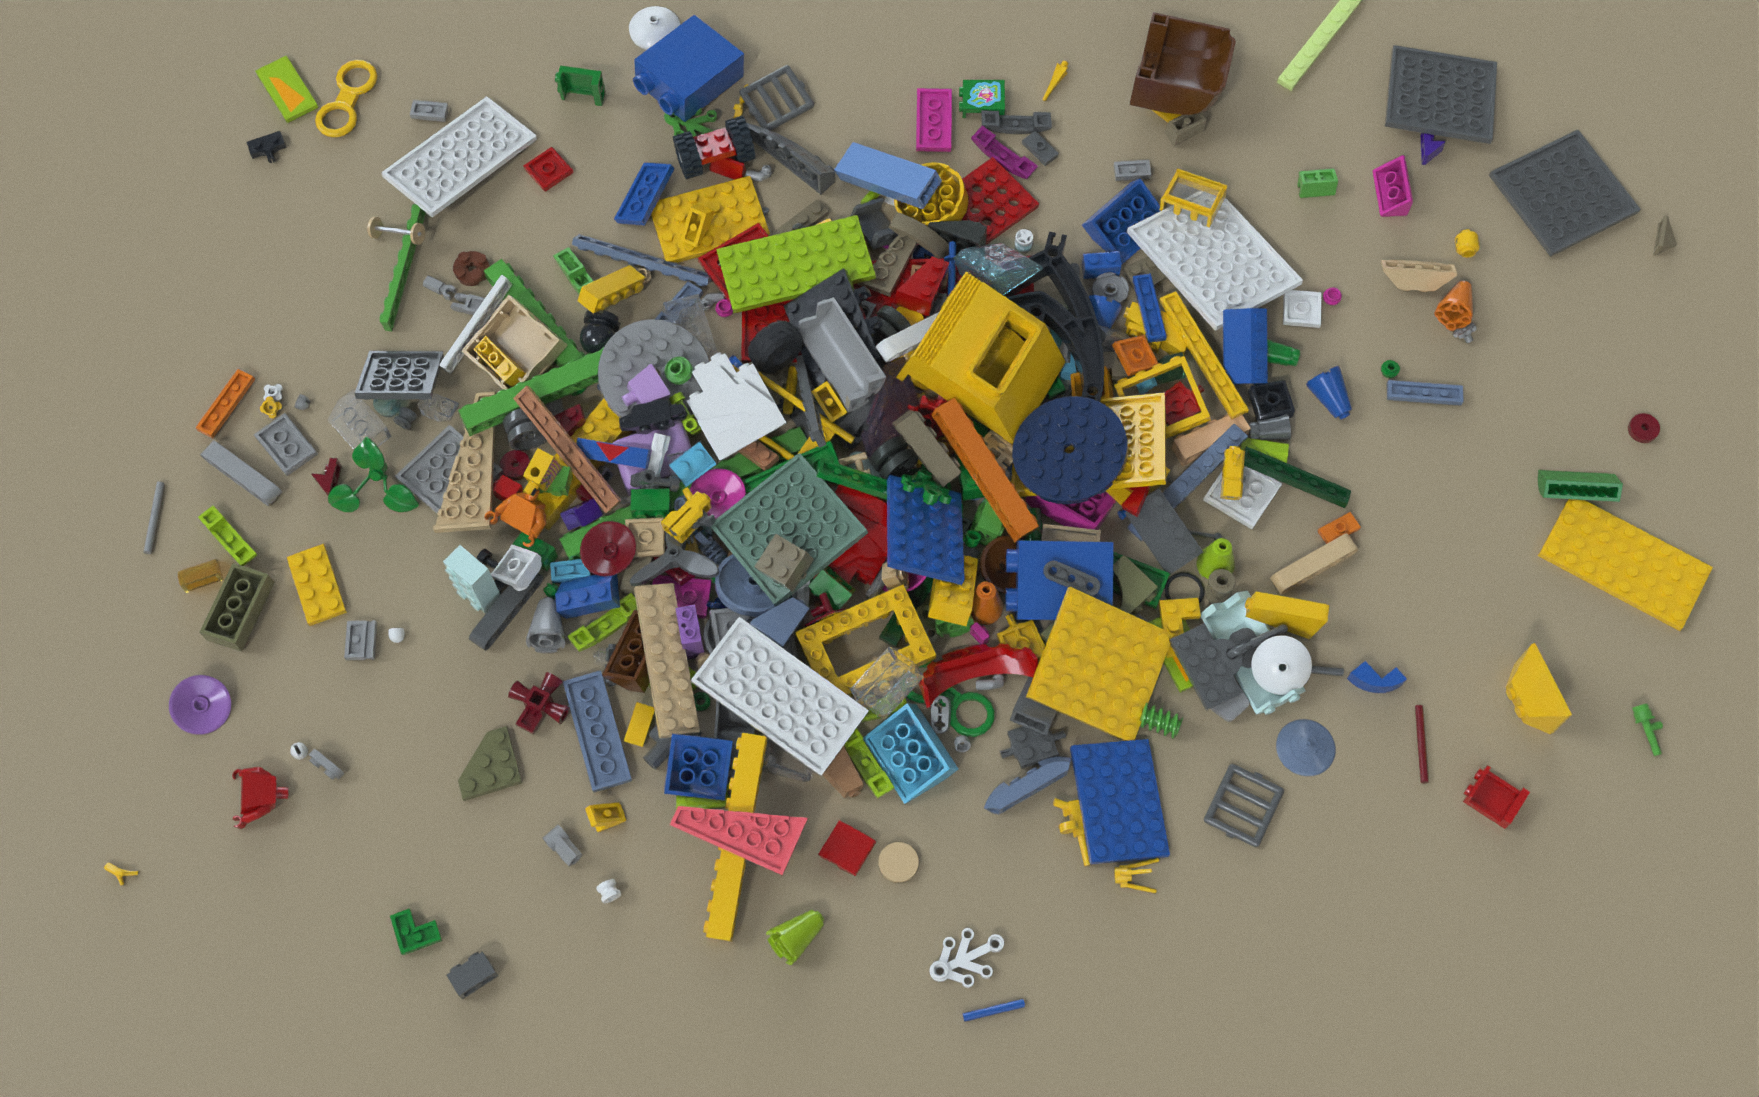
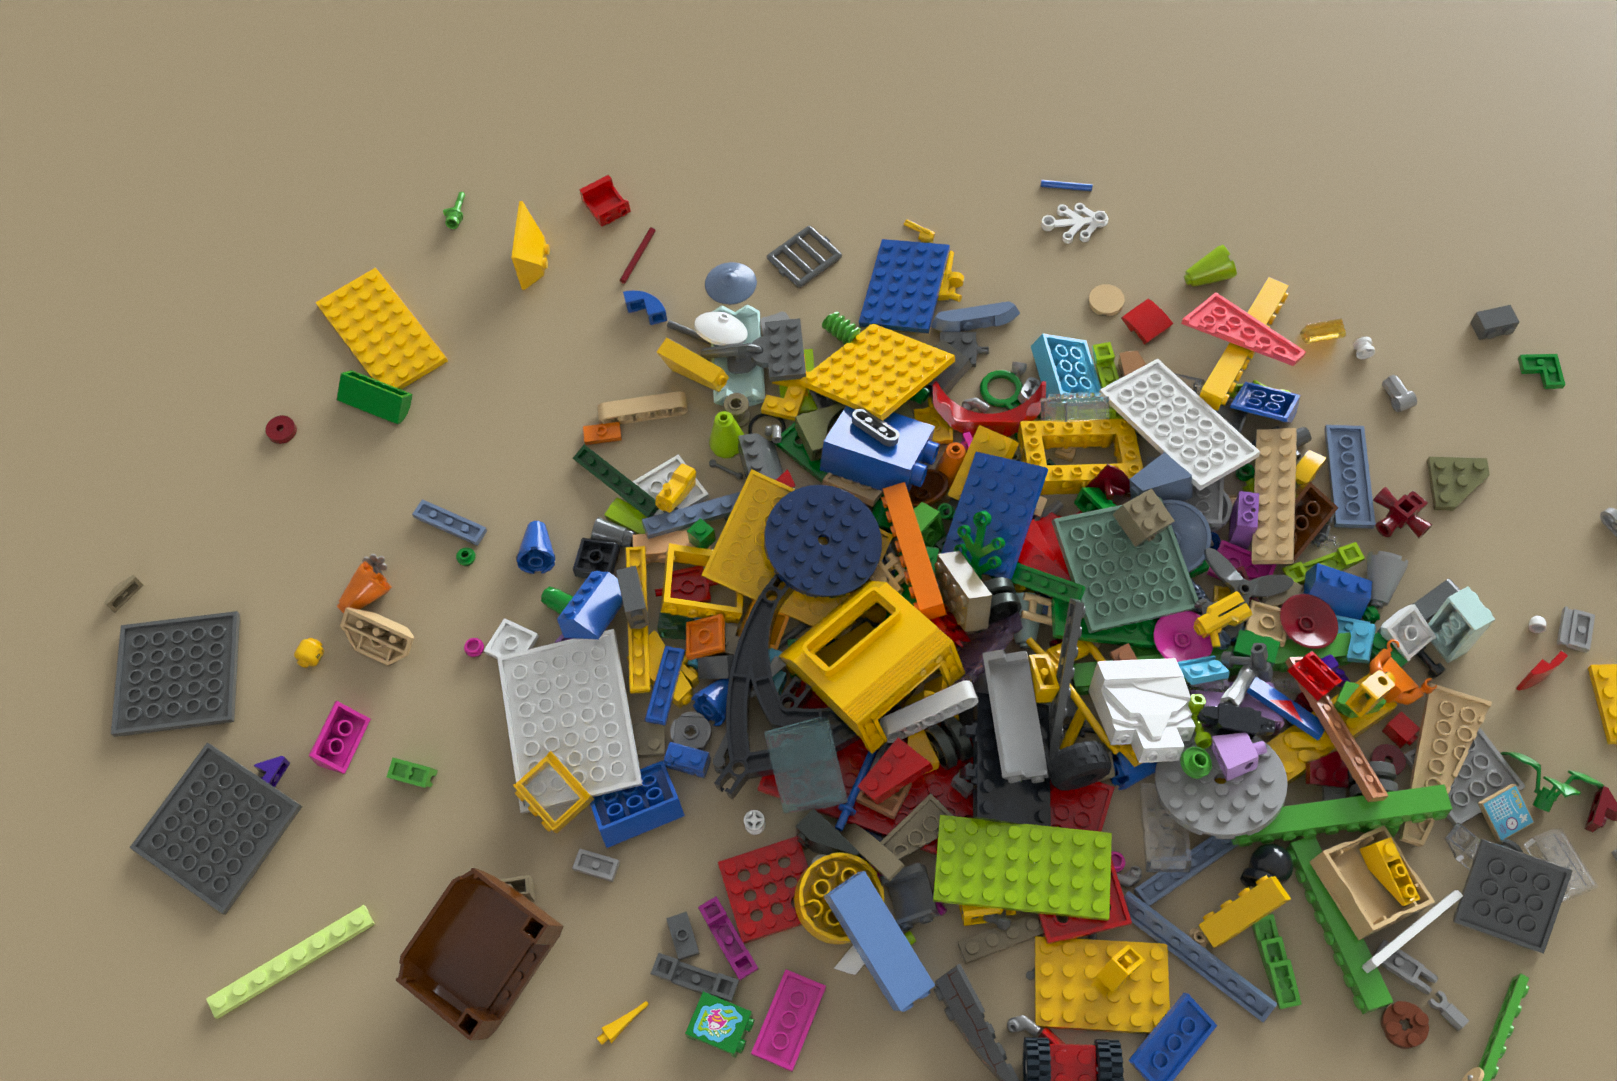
camera: 155 degrees left, 5 degrees down
(391, 574) = (1541, 671): none -> red slope
(410, 448) = (1506, 812): none -> tile
(557, 544) = (1361, 642): none -> medium azure plate
(593, 488) = (1314, 675): none -> red slope
(605, 815) = (1356, 403): yellow slope -> none
(655, 894) = (1323, 331): none -> clear yellow brick
(1170, 577) = (775, 431): none -> light grey arm
(1186, 439) = (701, 534): none -> green brick
(1212, 351) = (633, 597): none -> dark grey brick

